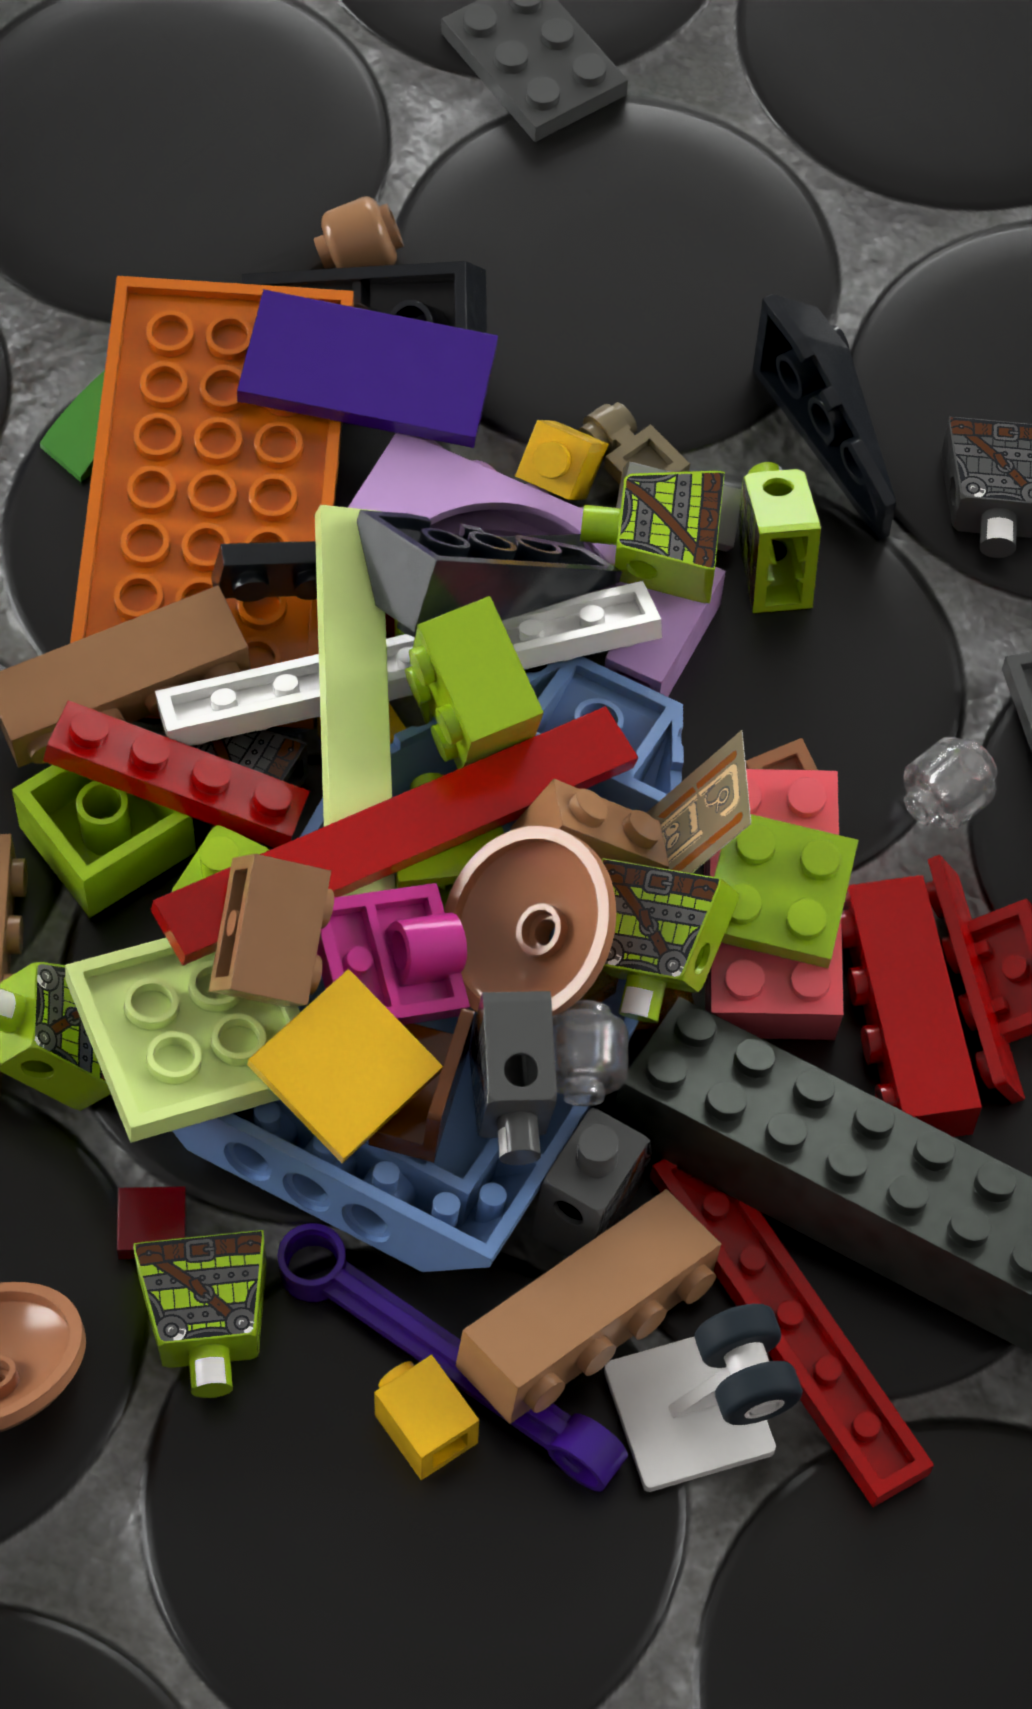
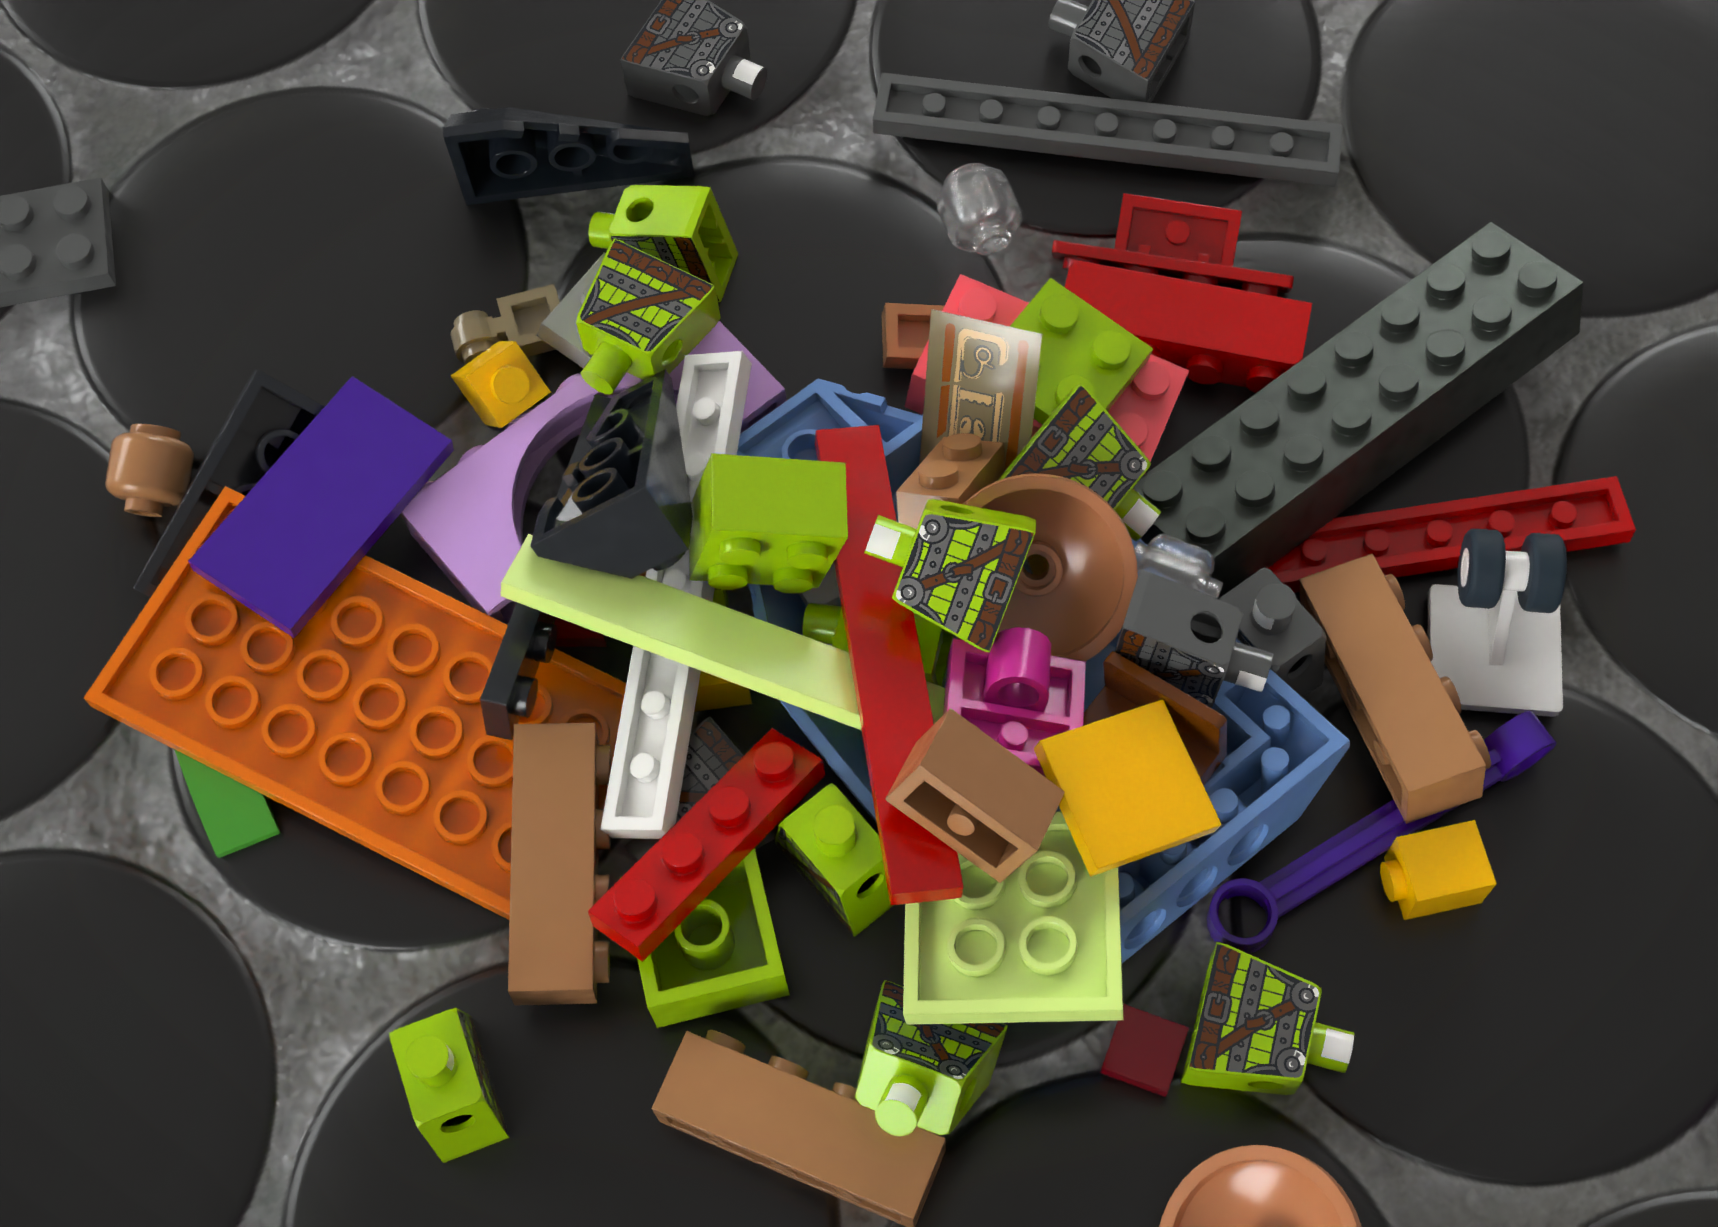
camera: 60 degrees left, 5 degrees up
(490, 845) = (956, 565): none -> torso

